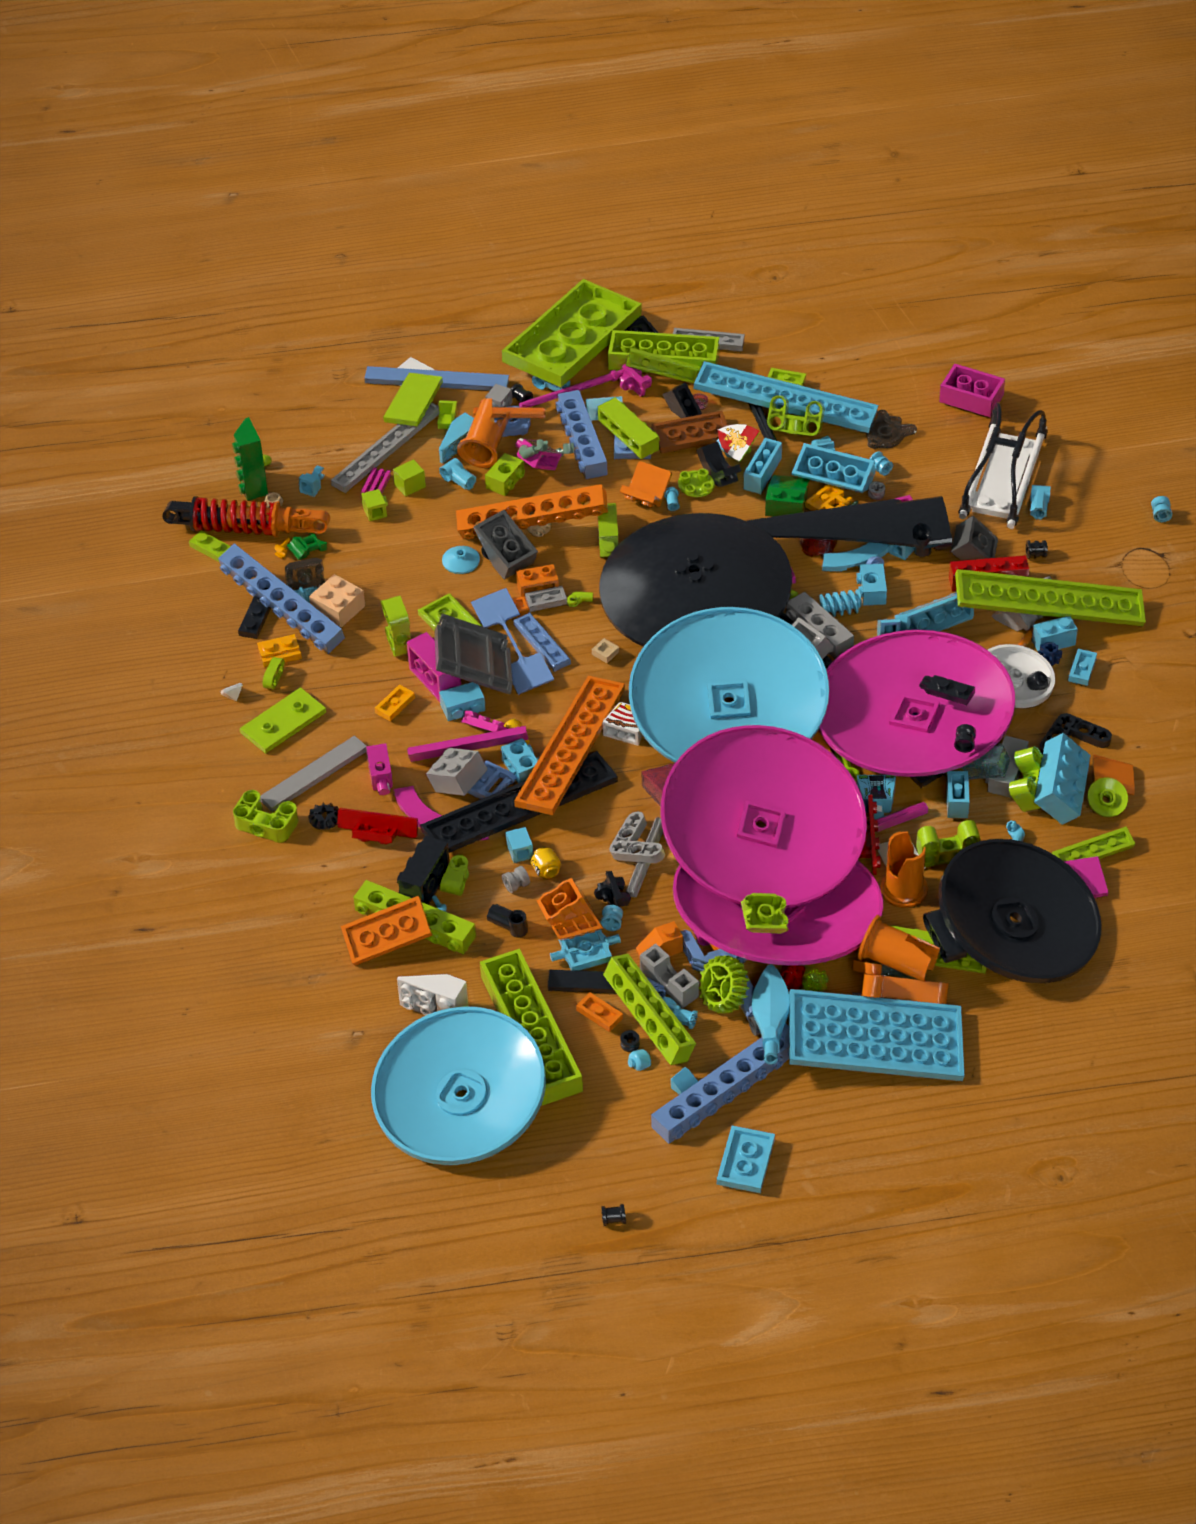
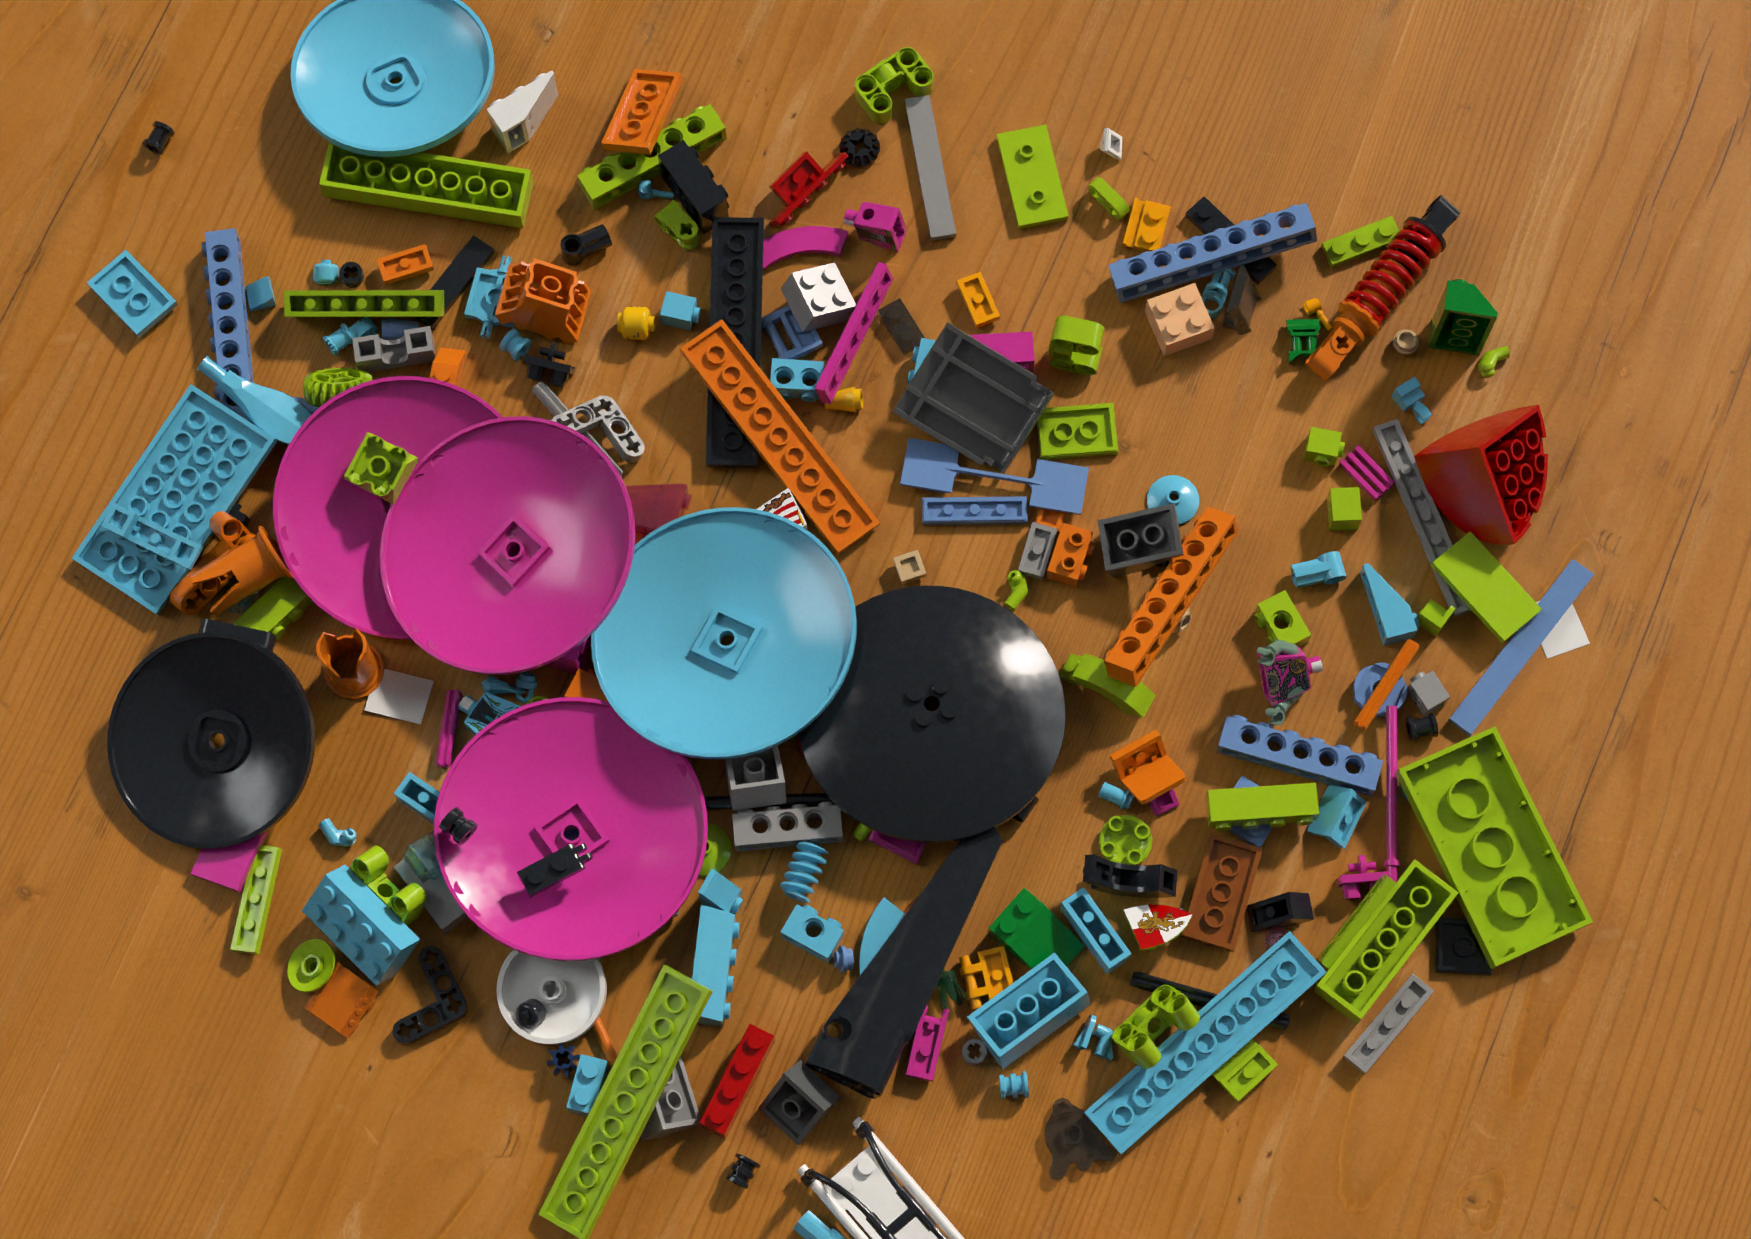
camera: 120 degrees right, 25 degrees up
(339, 422) = (1489, 474): none -> red brick
(443, 730) = (901, 326): none -> clear smoke plate
(482, 722) = (873, 369): dark pink hinge -> none
(483, 437) = (1348, 619): orange piece -> none
(516, 879) = (634, 281): light grey wheel -> none
(871, 843) = (441, 672): red bracket -> none
(912, 1019) = (152, 536): none -> medium azure slope
(943, 850) = (371, 722): lime beam -> none
(1082, 667) = (521, 1086): medium azure plate -> none

